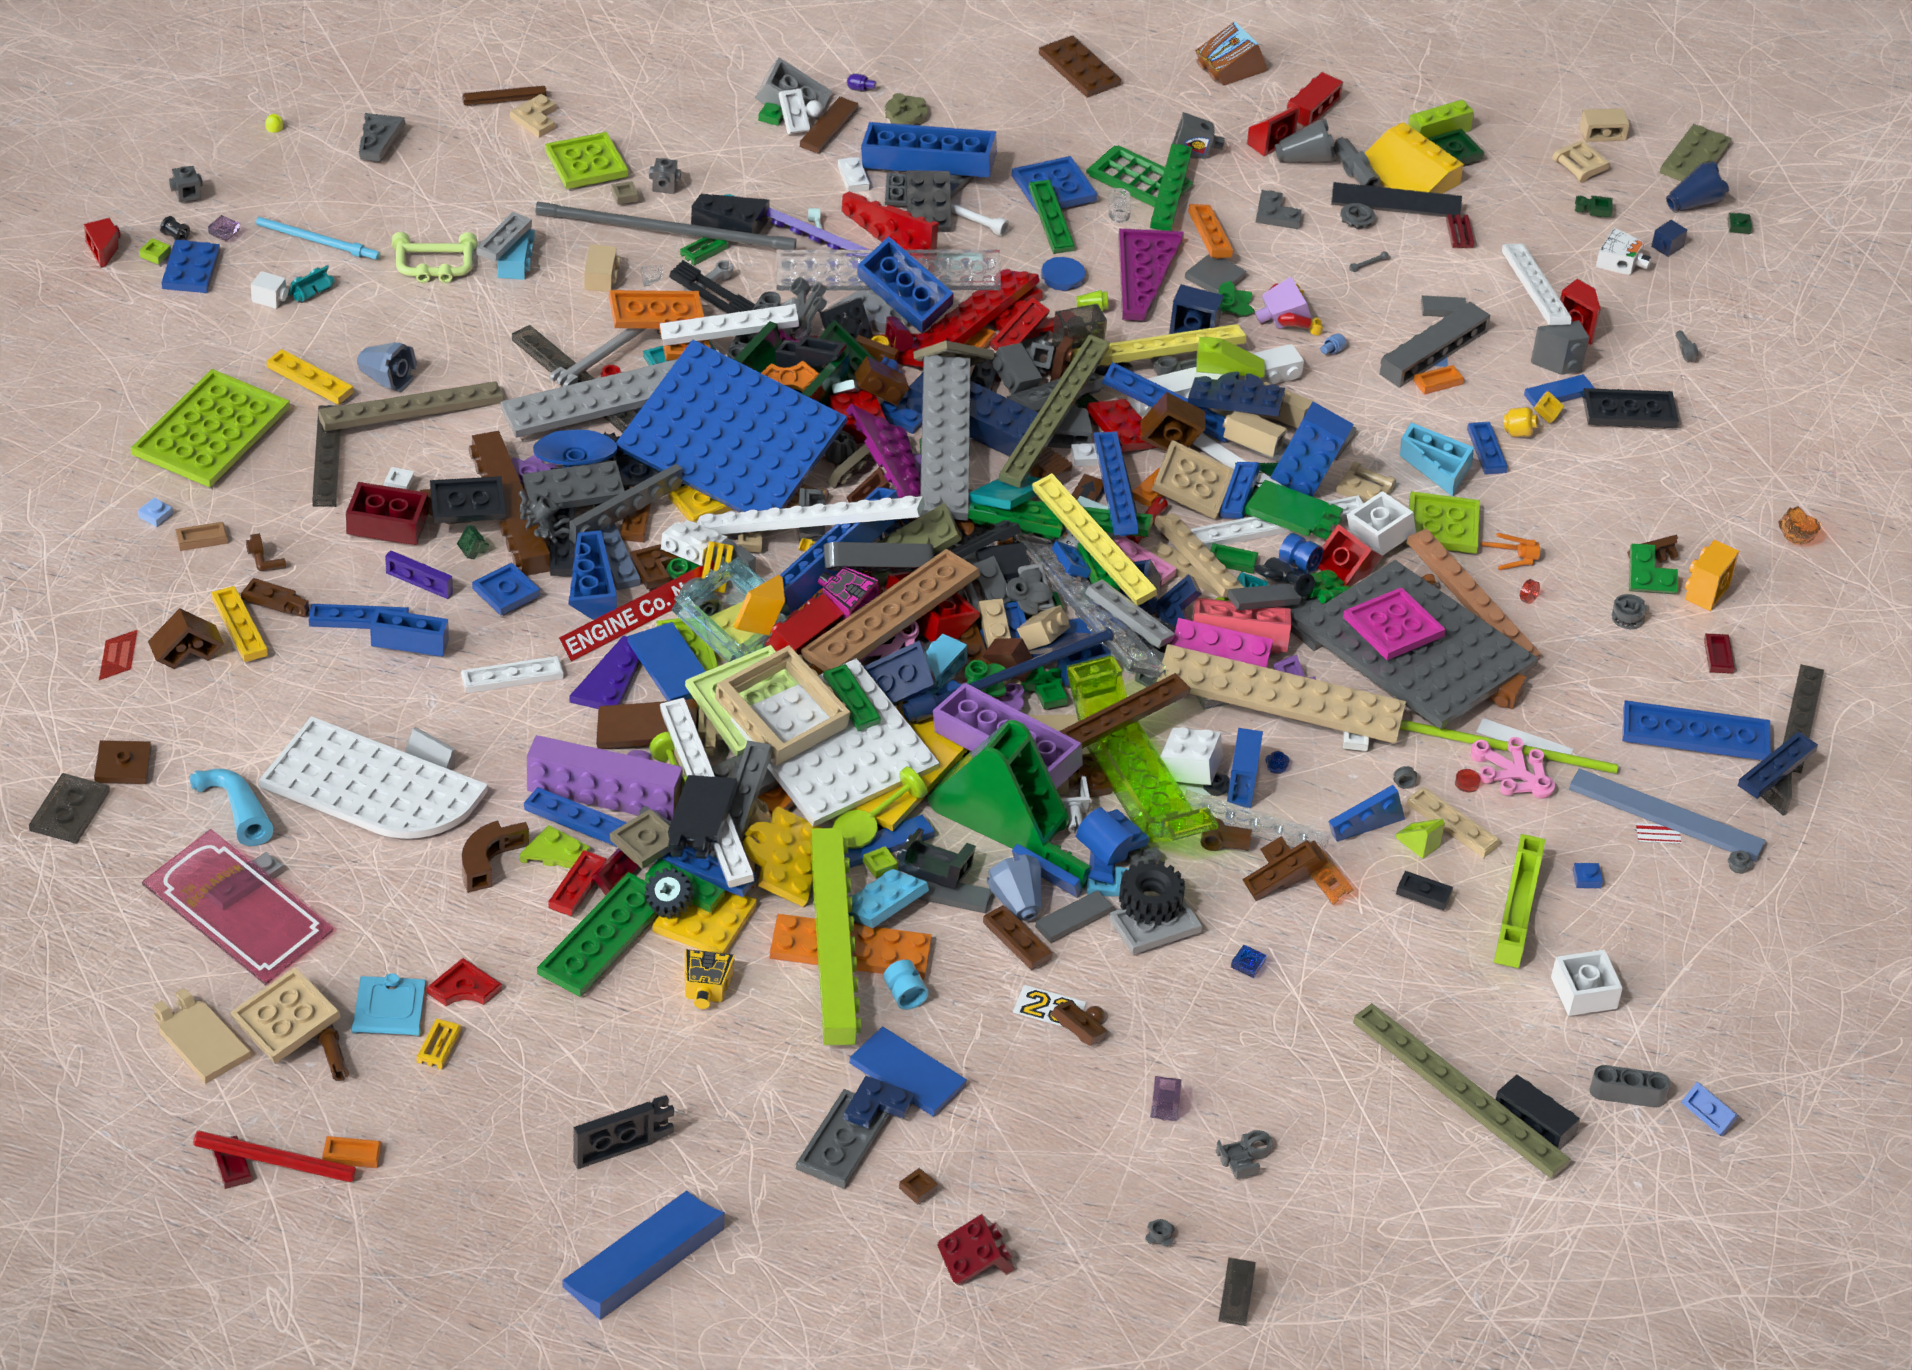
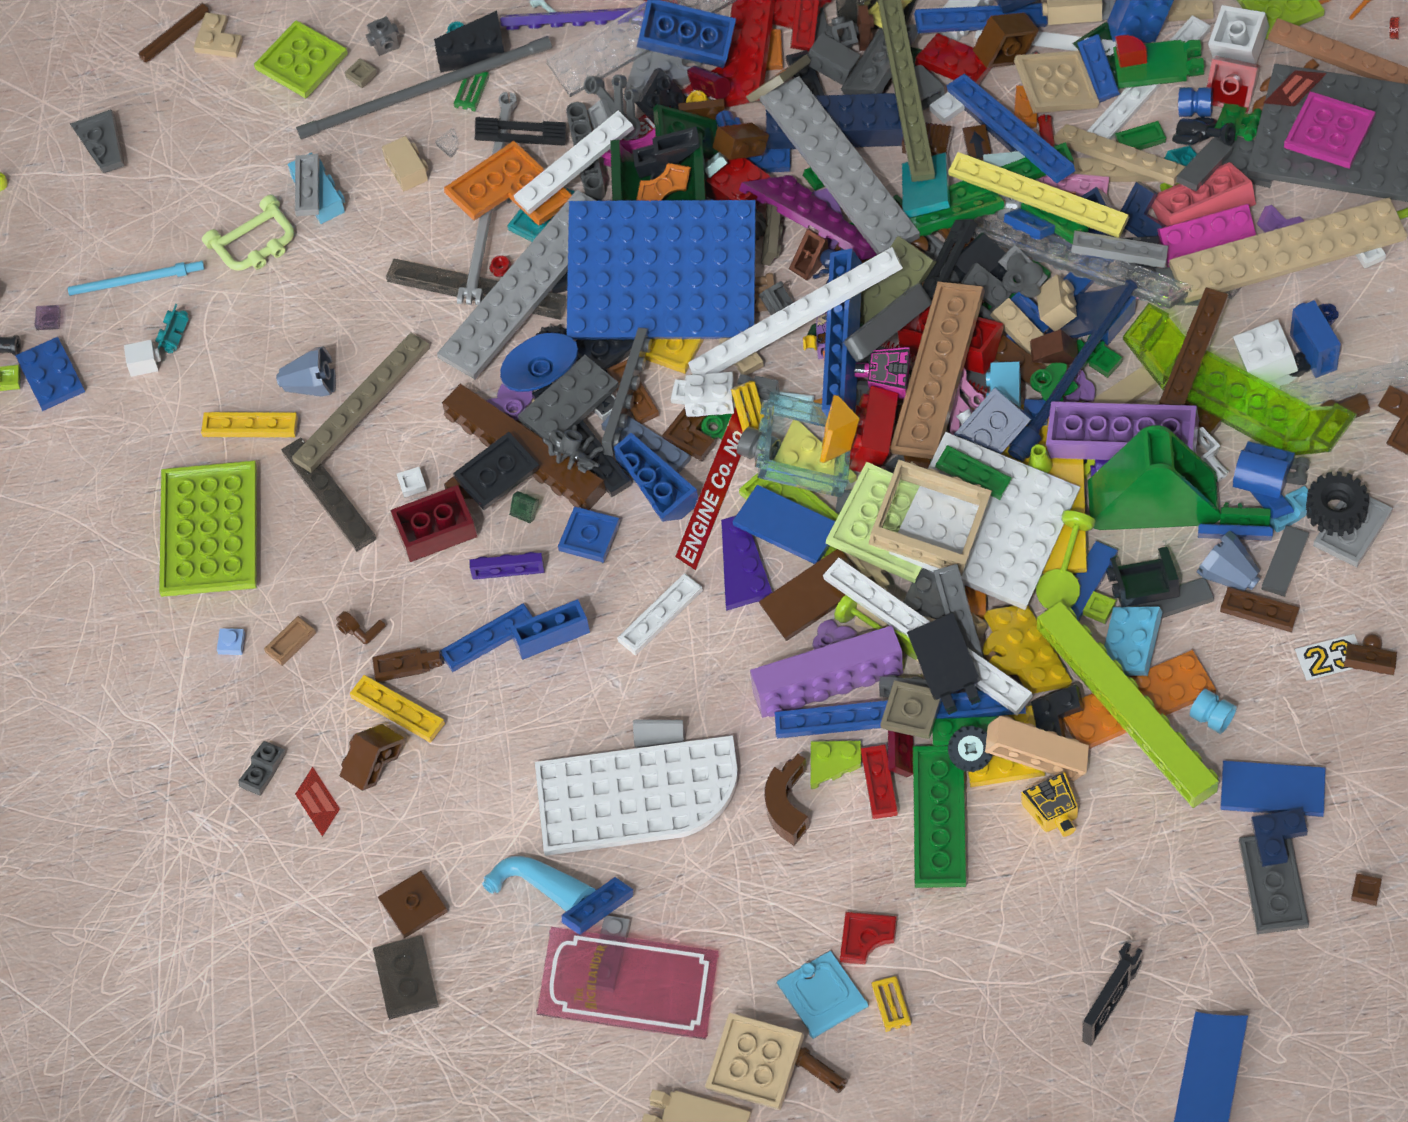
camera: 20 degrees left, 15 degrees up
(99, 607) = (262, 768): none -> dark grey slope
(263, 838) = (597, 905): none -> blue plate
(725, 921) = (1036, 748): none -> light nougat brick
(769, 910) = (1052, 708): none -> black plate
(922, 724) = (1040, 459): none -> lime cone
(1272, 485) = (1130, 51): none -> red brick
(1386, 583) = (1294, 88): none -> clear red sticker

